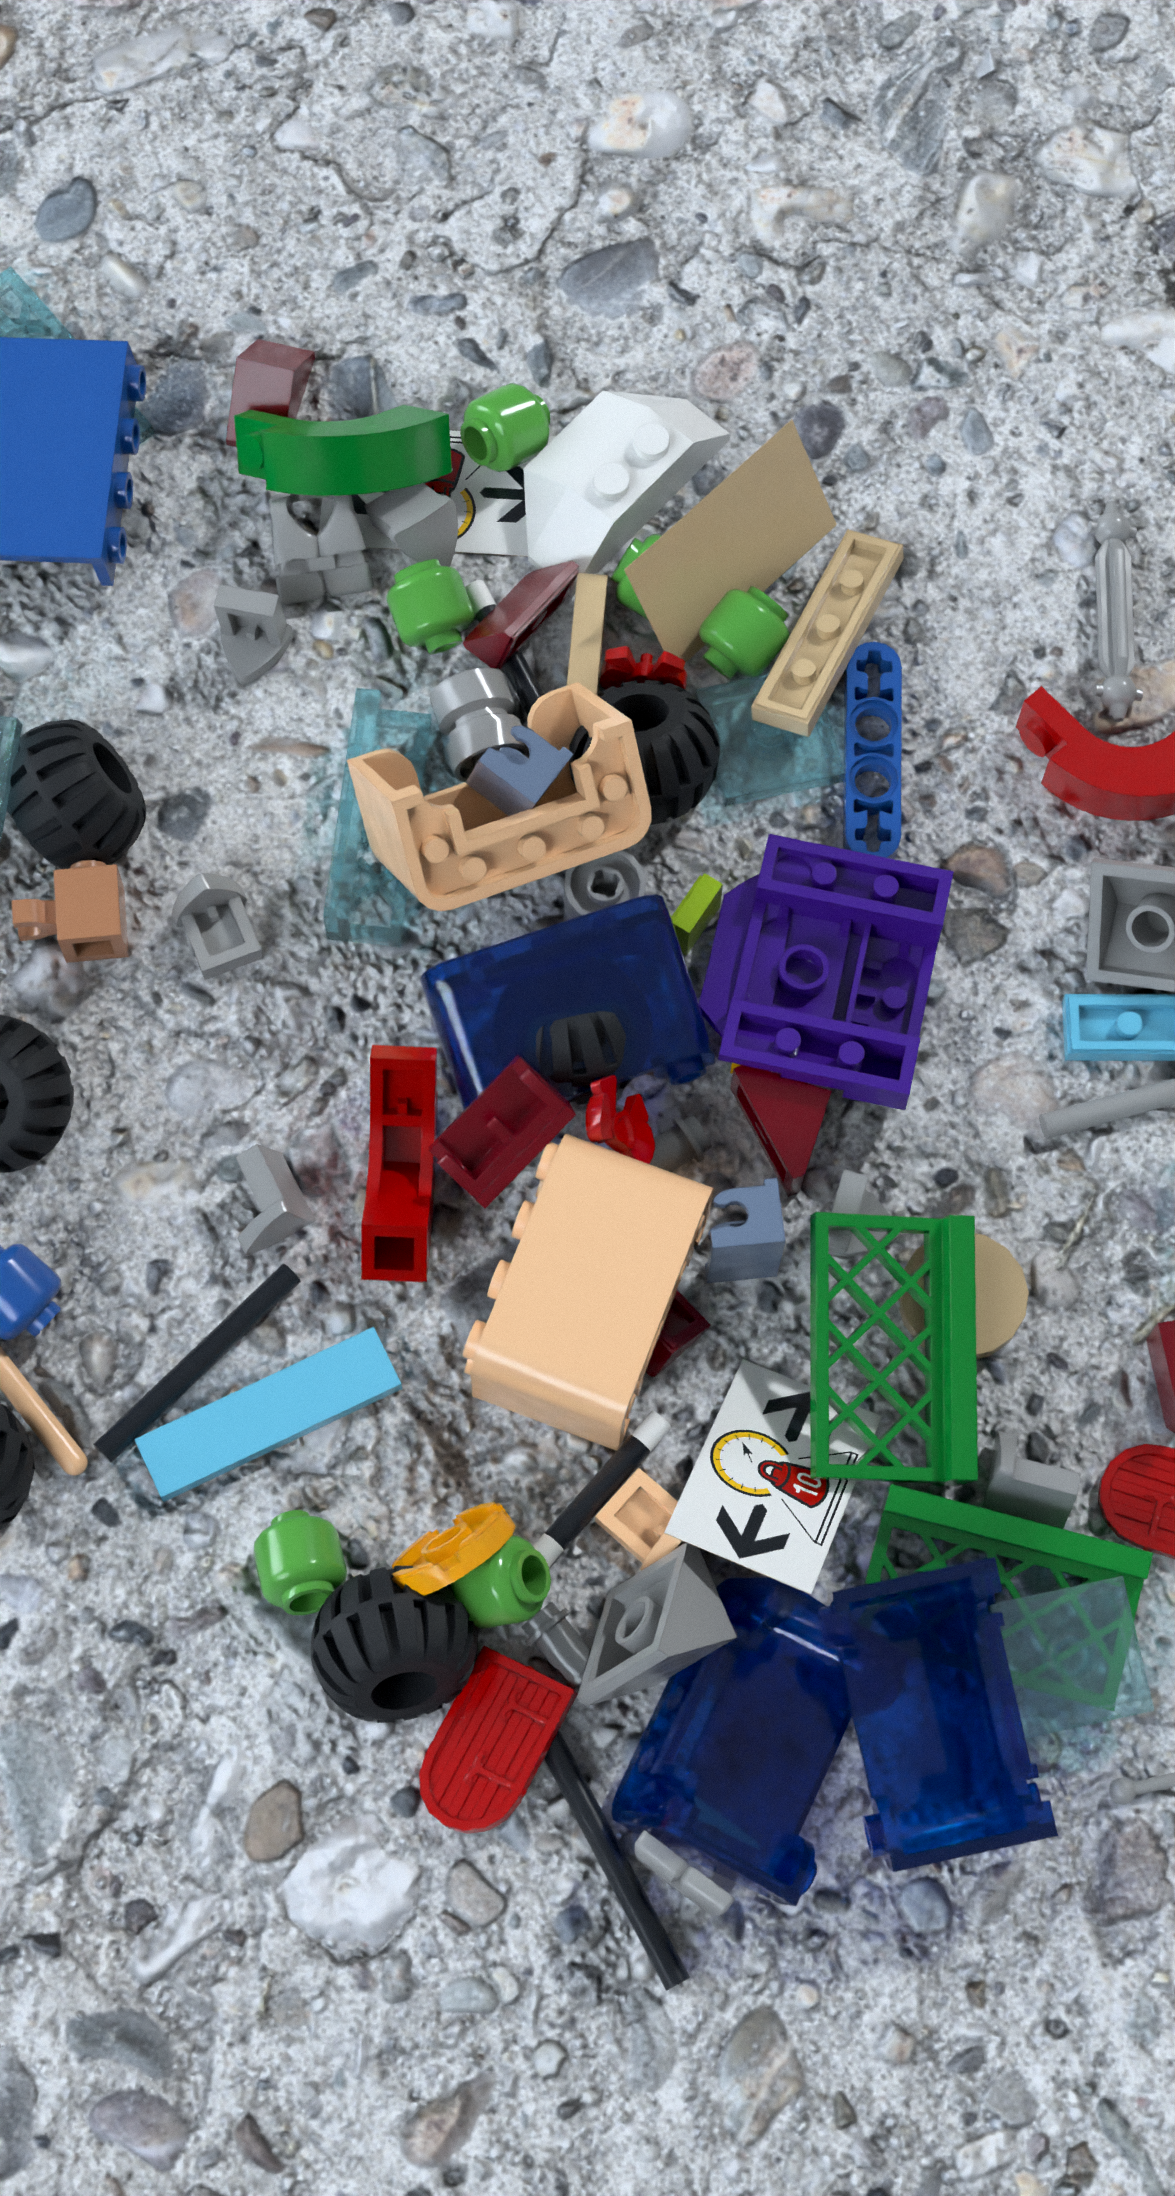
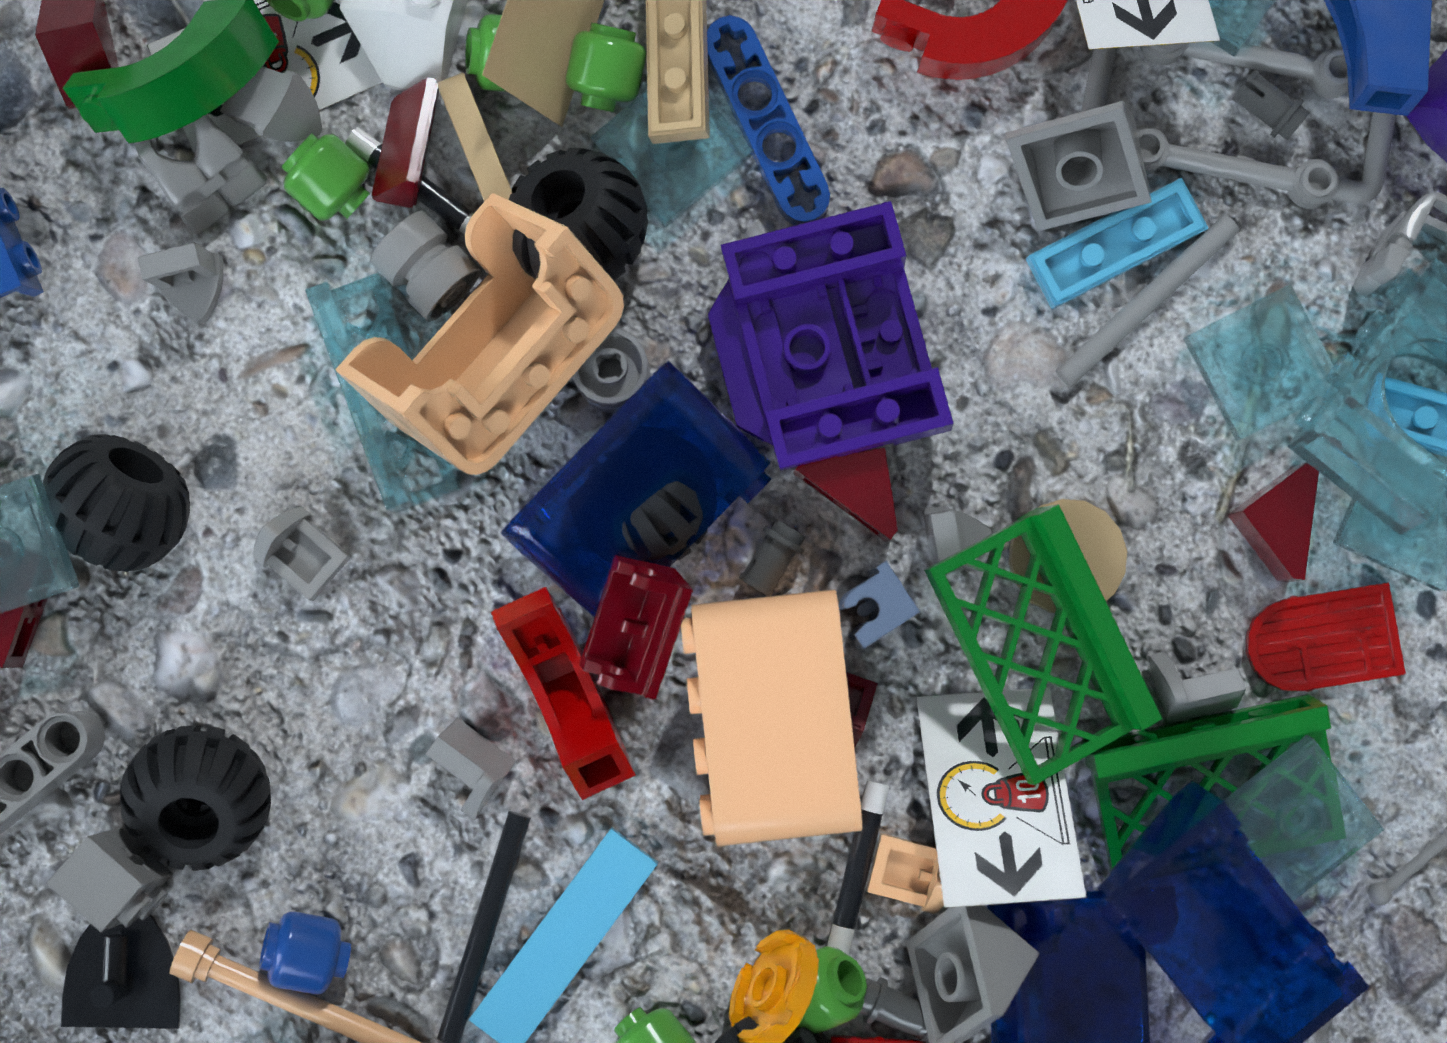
camera: 25 degrees left, 15 degrees up
(84, 915) = (183, 601): nougat brick -> none
(514, 780) = (501, 307): sand blue hinge -> none
(621, 668) = (519, 151): red piece -> none
(622, 1130) = (734, 572): red piece -> none
(697, 911) = (690, 341): lime tile -> none

